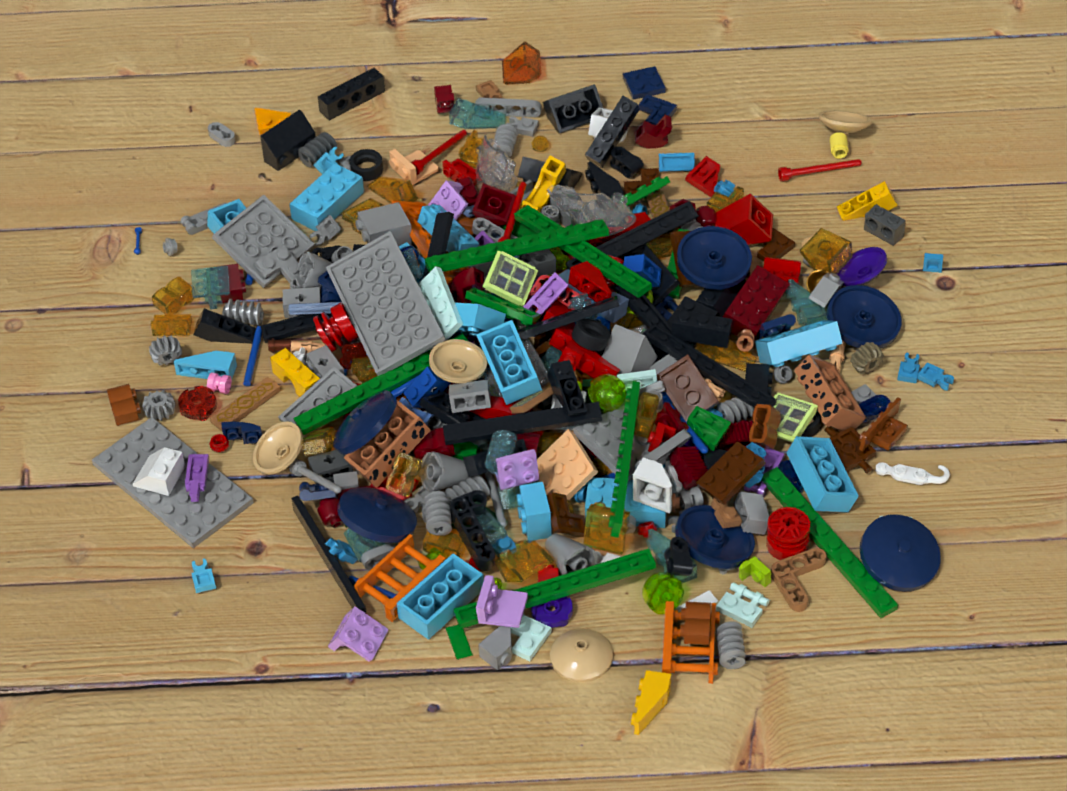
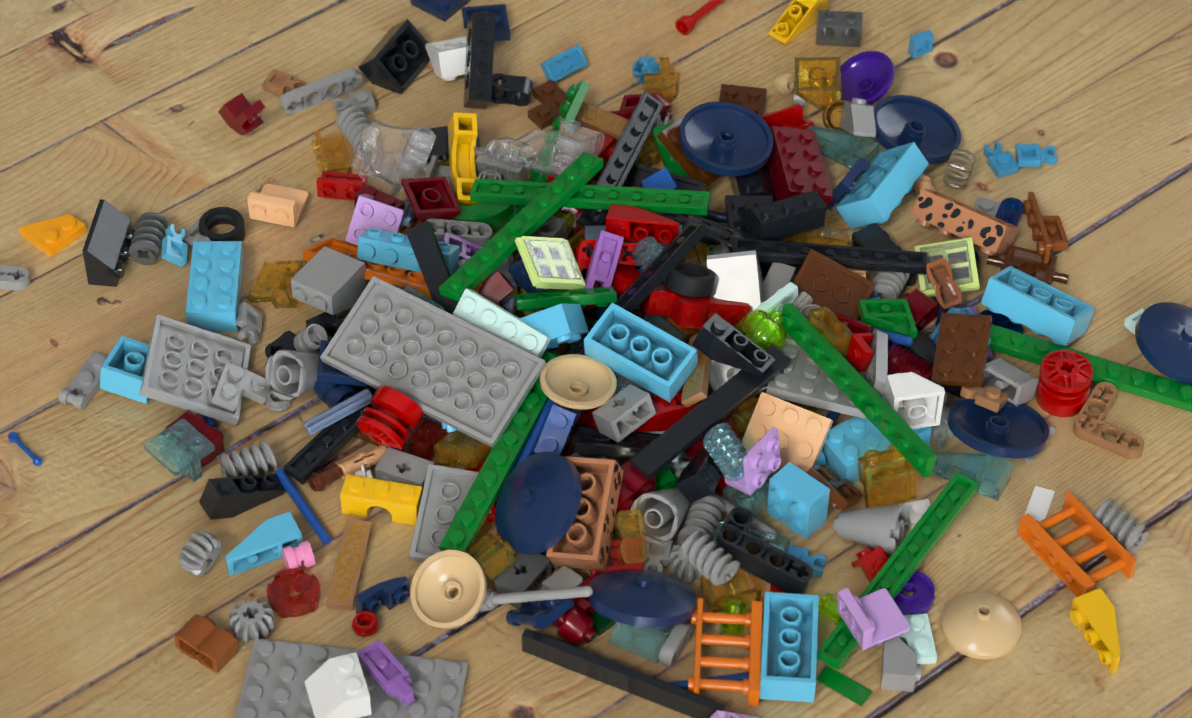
camera: 40 degrees left, 0 degrees up
(170, 246) = (77, 434): light grey plate -> none
(171, 325) = (169, 522): clear yellow bracket -> none
(173, 296) = (142, 488): clear yellow brick -> none
(300, 295) = (291, 417): light grey brick -> none
(341, 550) = (633, 661): dark azure plate -> none
(351, 94) = (125, 158): black brick -> none
(393, 189) = (283, 240): clear yellow slope -> none
(419, 164) = (291, 171): red piece -> none
(474, 116) = (291, 118): clear light blue slope -> none
(516, 205) = (480, 233): red piece -> none
(522, 65) = (291, 39): clear orange slope -> none
(522, 561) = (841, 560): clear yellow slope -> none
(540, 143) = (395, 113): clear yellow plate -> none
(601, 181) = (509, 122): black slope -> none
(652, 135) = (515, 46): dark red brick -> none
(662, 588) = (1002, 510): clear neon green cylinder -> none
(678, 558) = (998, 464): black piece -> none
(697, 623) = (1075, 521): dark orange brick -> none
(704, 176) = (608, 65): red wing -> none
(739, 609) = (1084, 487): light aqua plate -> none
(745, 346) = (832, 215): nougat bush -> none
(747, 219) = (701, 84): red slope -> none
(757, 570) = (1067, 437): lime bracket -> none
(785, 376) = (892, 227): light grey plate -> none
(912, 474) = (1108, 262): white piece -> none

